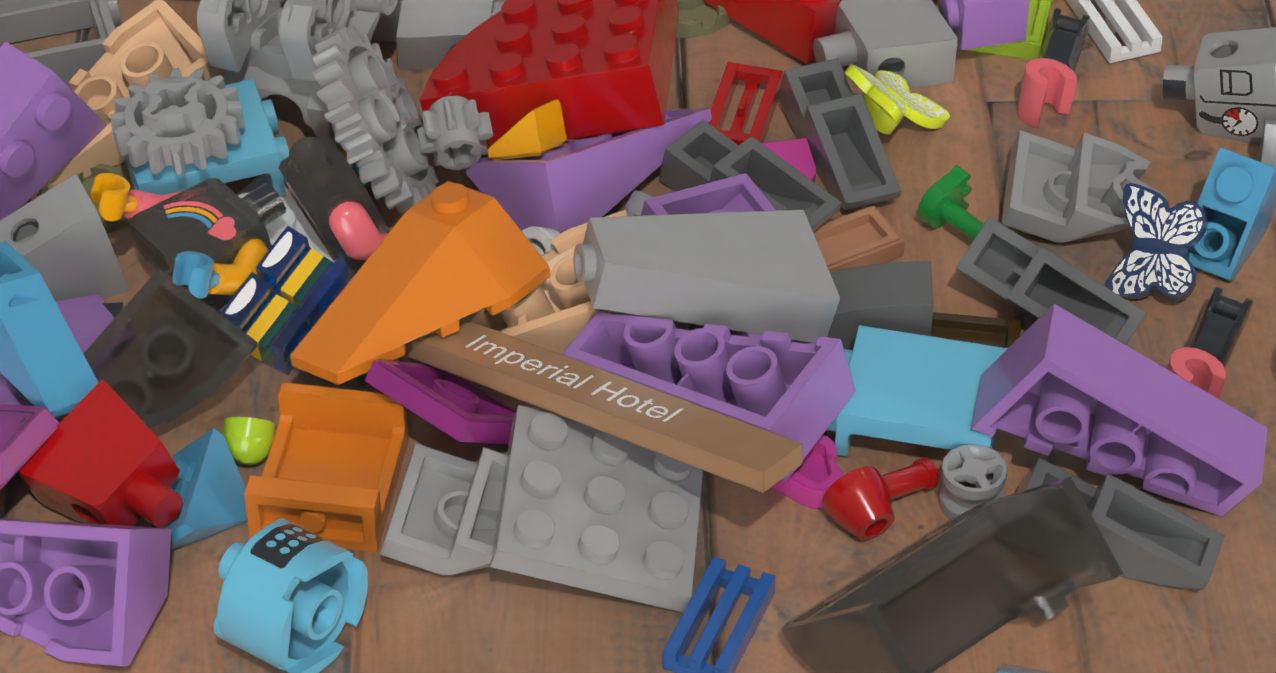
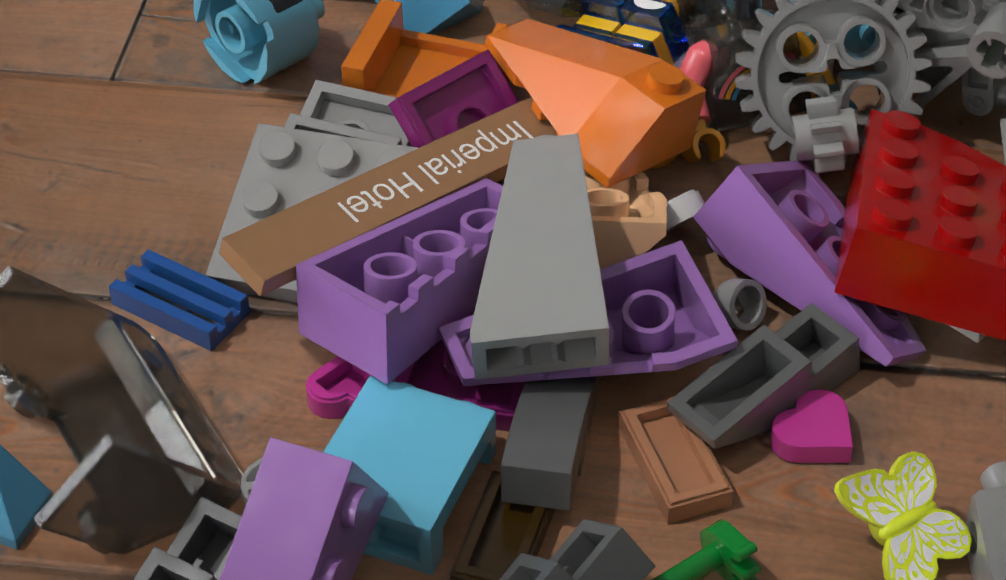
camera: 100 degrees right, 0 degrees up
(248, 438) = (476, 23): lime hinge -> none
(533, 134) = (815, 188): light orange slope -> none
(754, 76) = (916, 418): red tile -> none
(839, 134) = (799, 478): dark grey slope -> none
(863, 496) = (278, 411): red bar -> none

